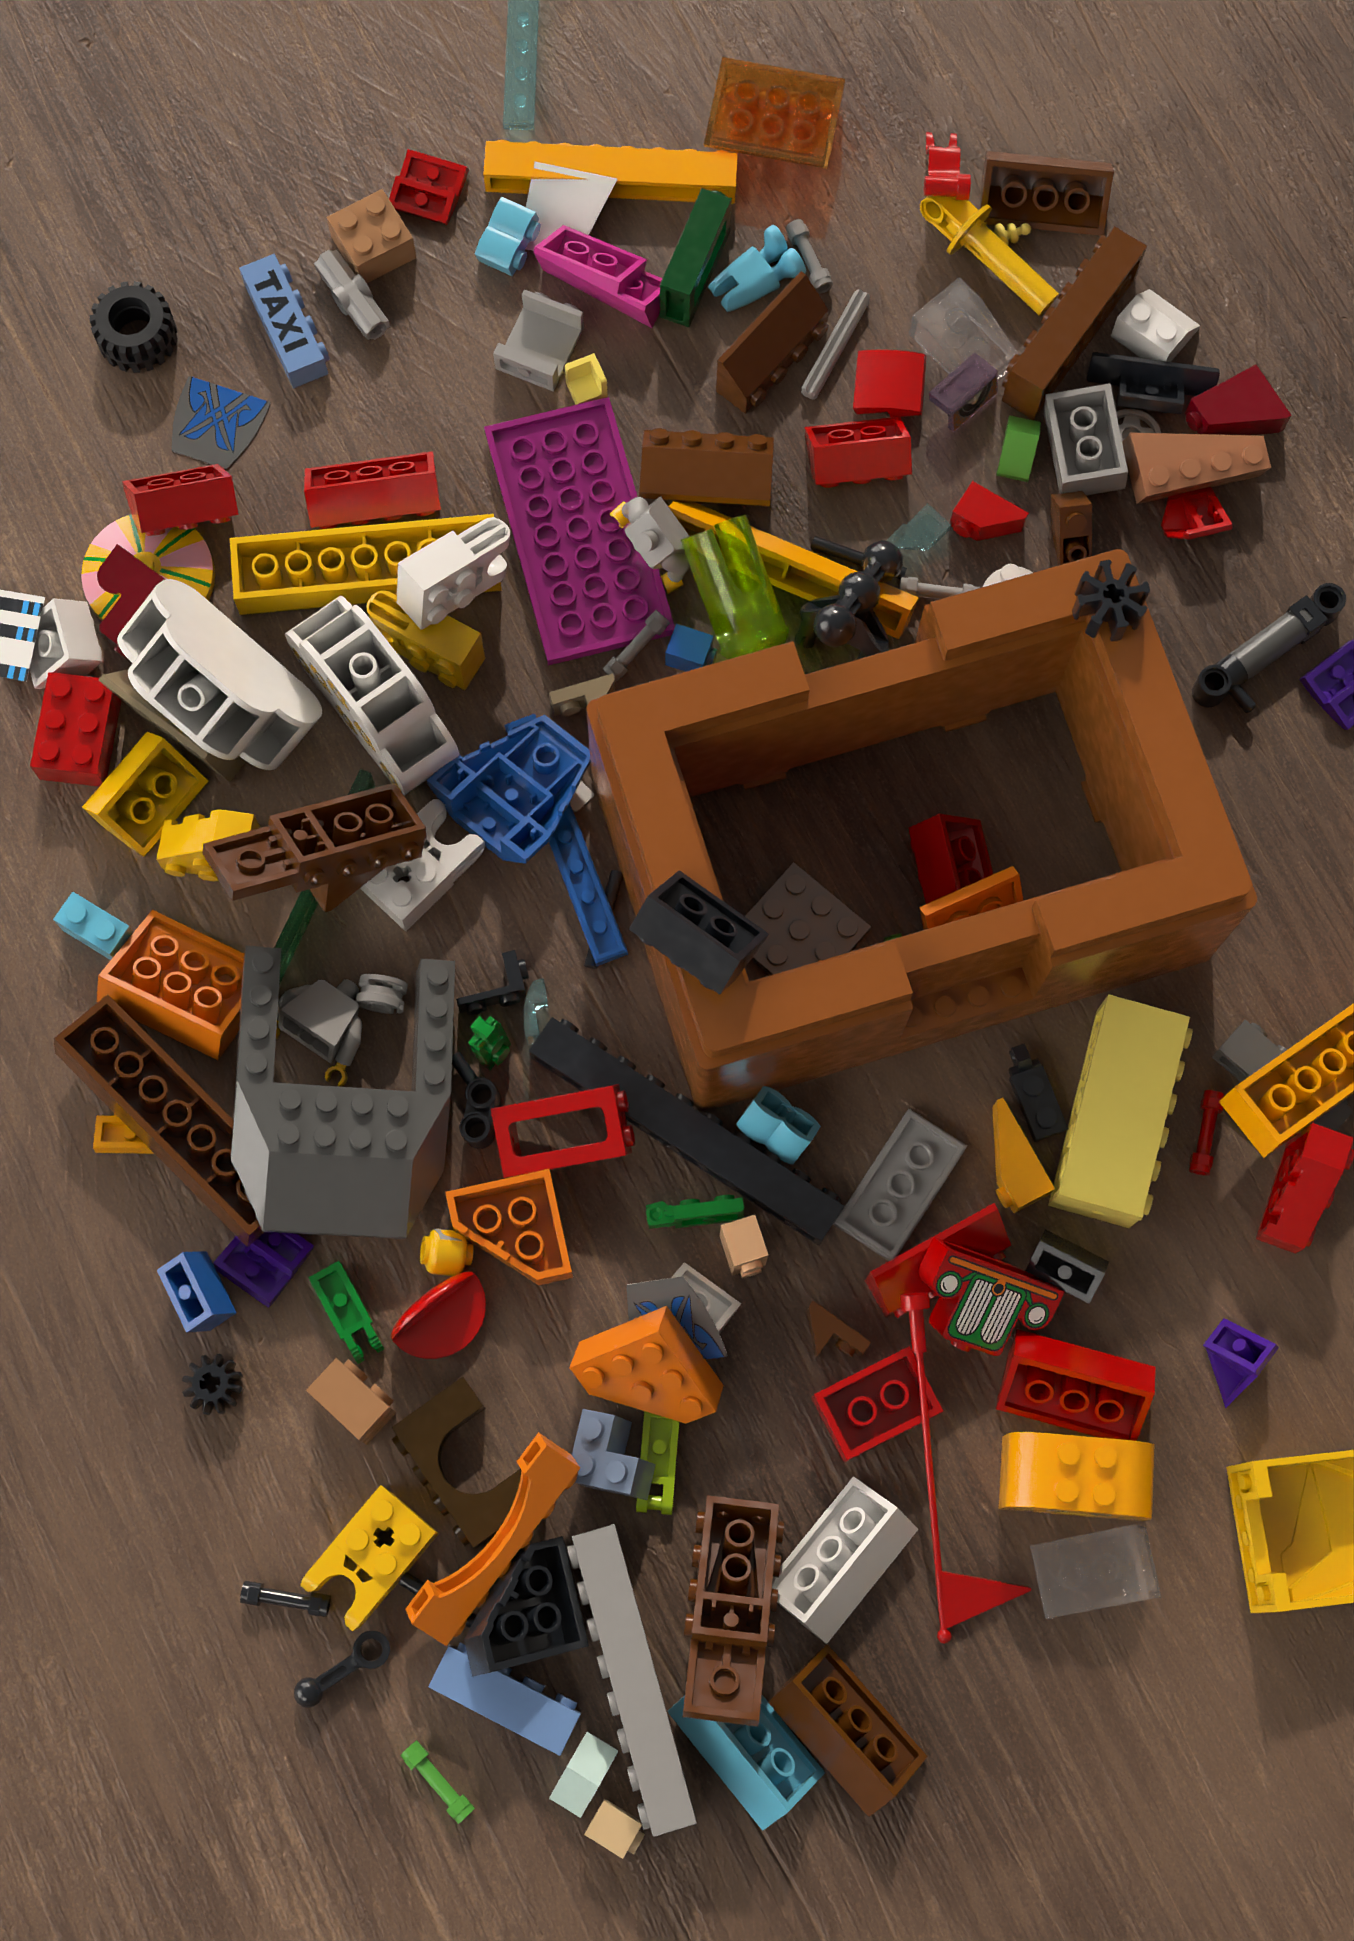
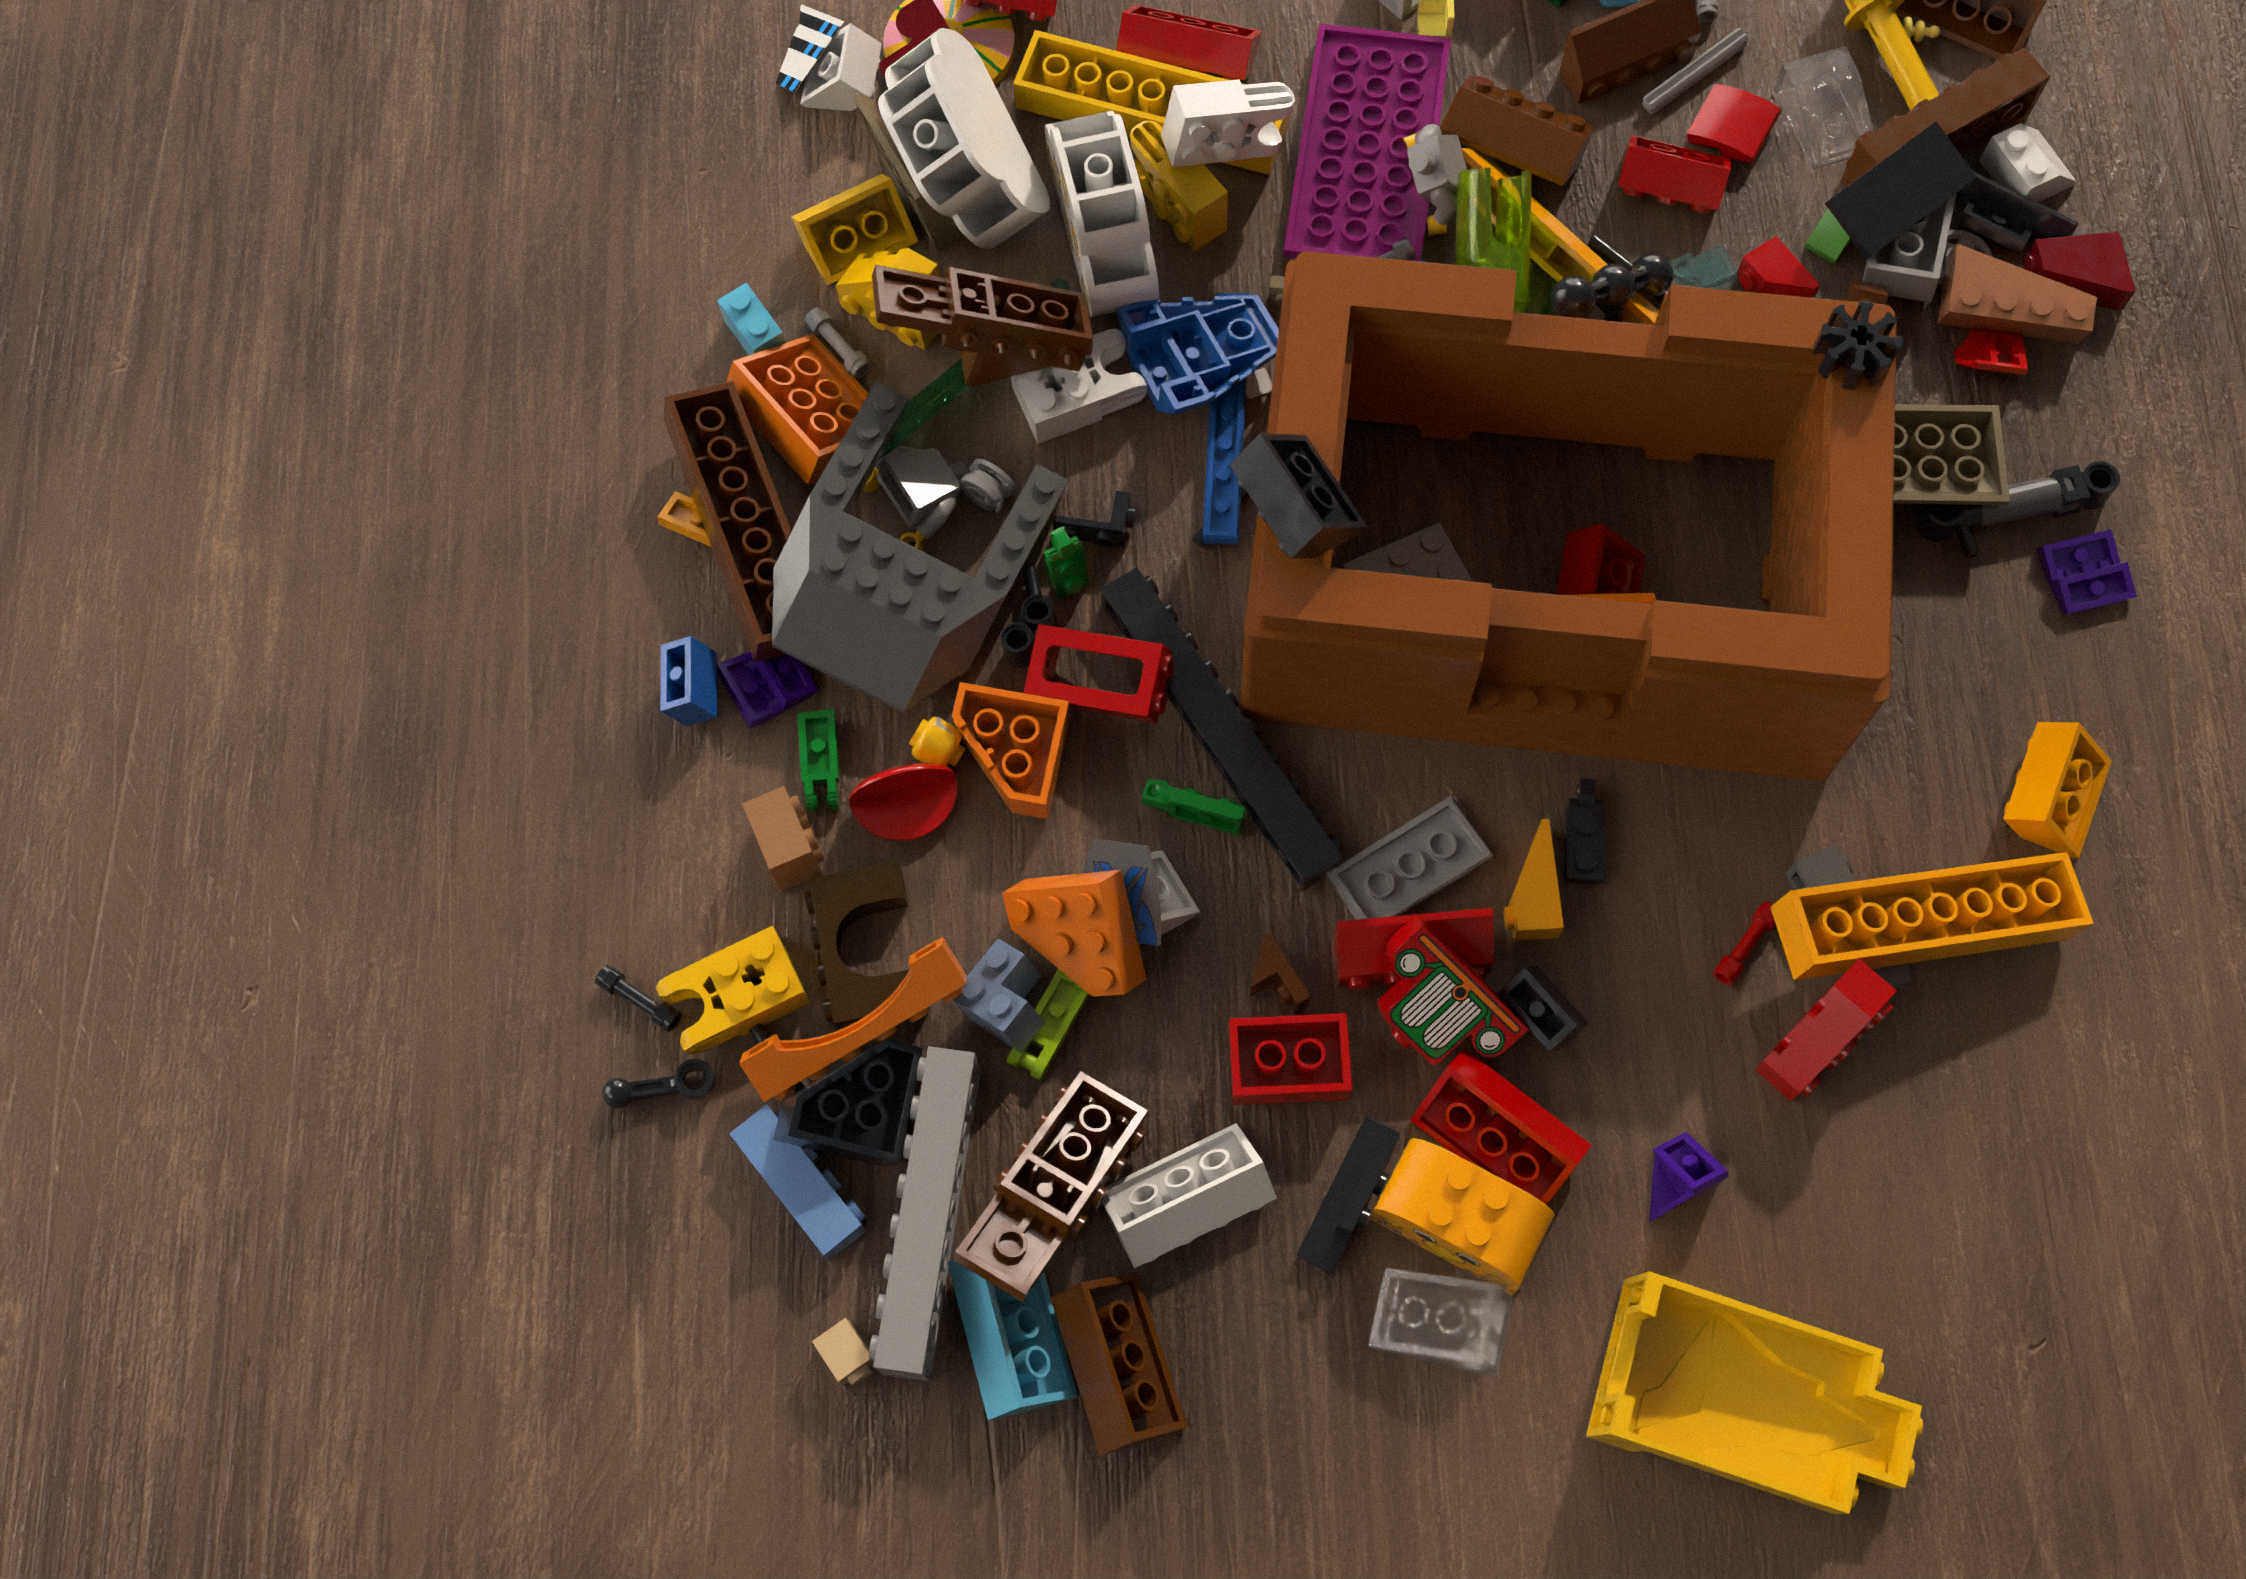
camera: 30 degrees right, 5 degrees down
(75, 730) = (817, 149): red brick -> none
(155, 898) = (855, 361): none -> light grey bar
(205, 1396) = (672, 783): black gear -> none
(416, 1757) = (689, 1200): bright green bar -> none
(535, 999) = (1126, 551): clear light blue slope -> none
(583, 1774) = (839, 1288): light aqua slope -> none
(744, 1246) = (1225, 852): light nougat brick -> none
(778, 1125) = (1311, 754): medium azure brick -> none
(957, 1594) = (1288, 1281): red piece -> none
(965, 390) = (1807, 155): panel -> none
(976, 1497) = (1348, 1195): none -> black bracket
(1064, 403) = (1900, 190): none -> black tile
(1121, 1112) = (1665, 882): light yellow brick -> none
(1203, 629) = (1949, 455): none -> dark tan slope

